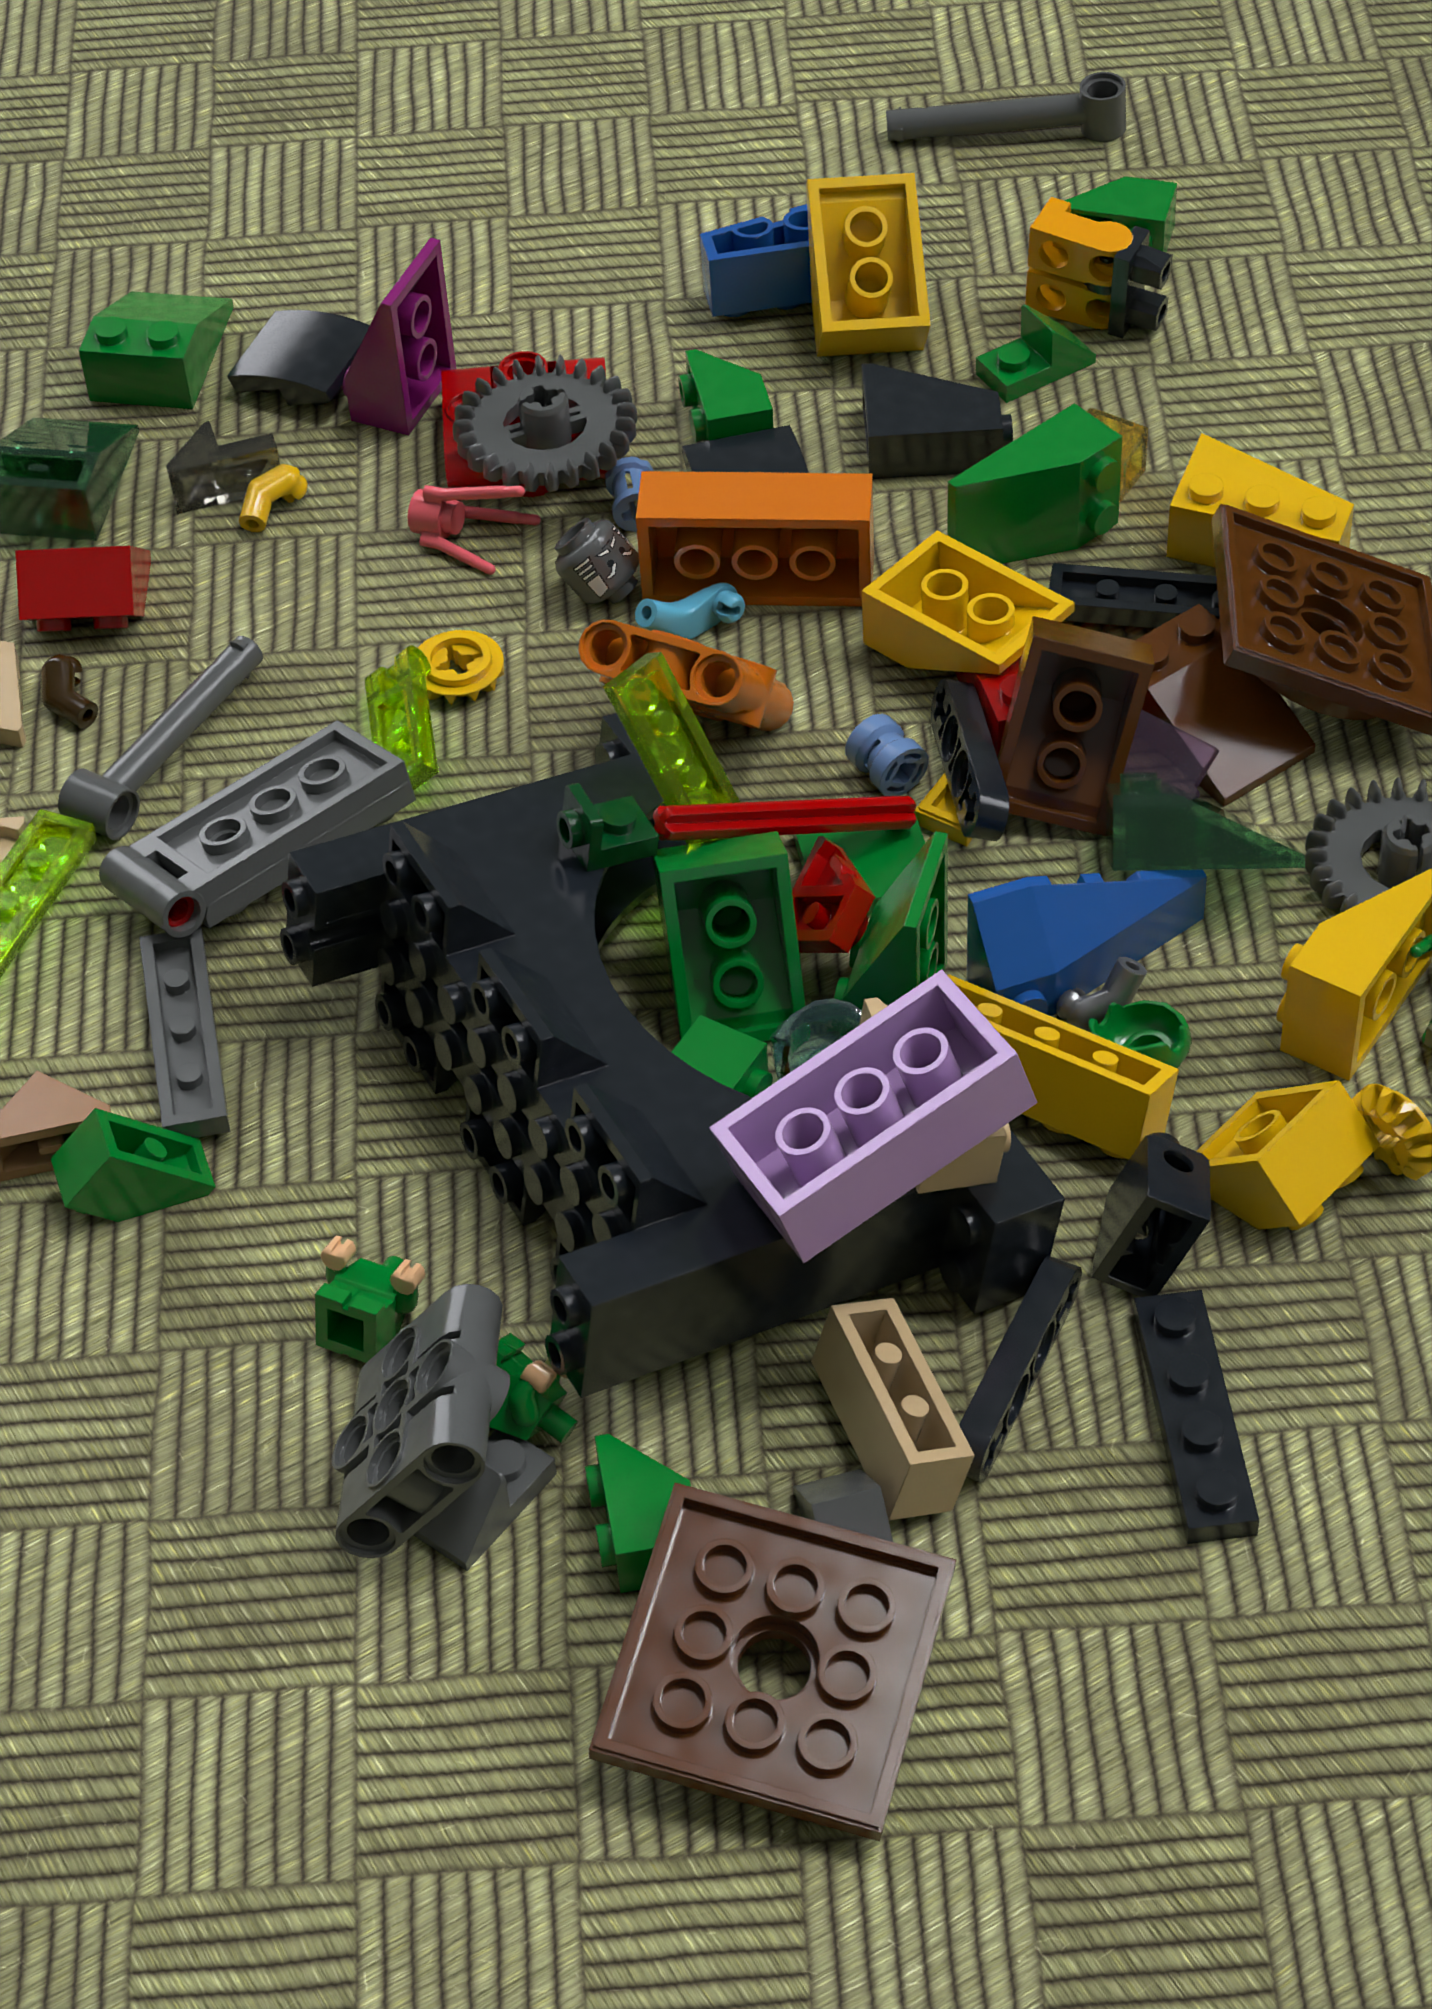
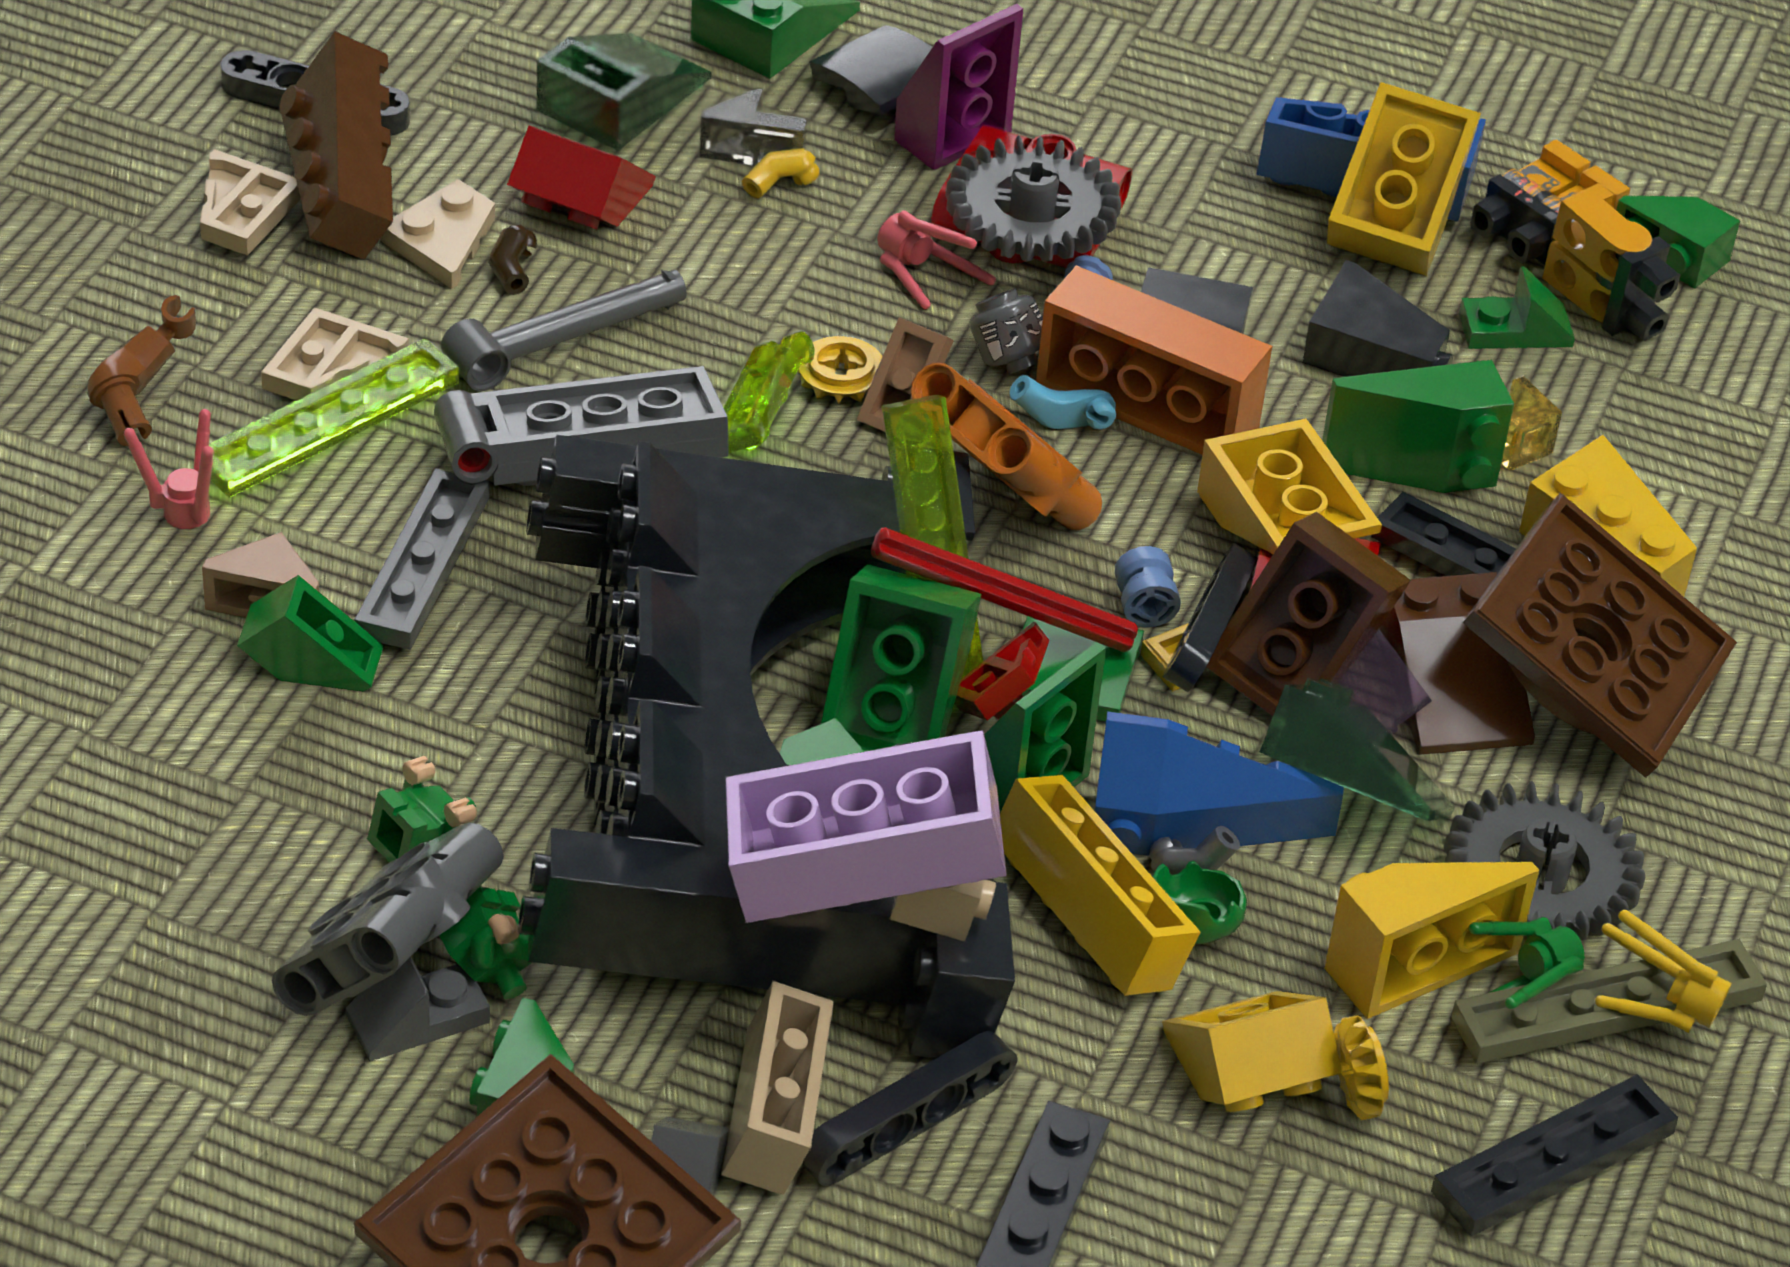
camera: 20 degrees right, 5 degrees down
(533, 651) = (907, 353): none -> medium nougat slope
(604, 831) = (829, 530): dark green bracket -> none
(723, 398) = (1213, 242): green slope -> none
(989, 237) = (1527, 200): none -> hips
(1097, 108) = (1723, 129): dark grey piece -> none
(1169, 1194) = (1121, 1016): black torso -> none

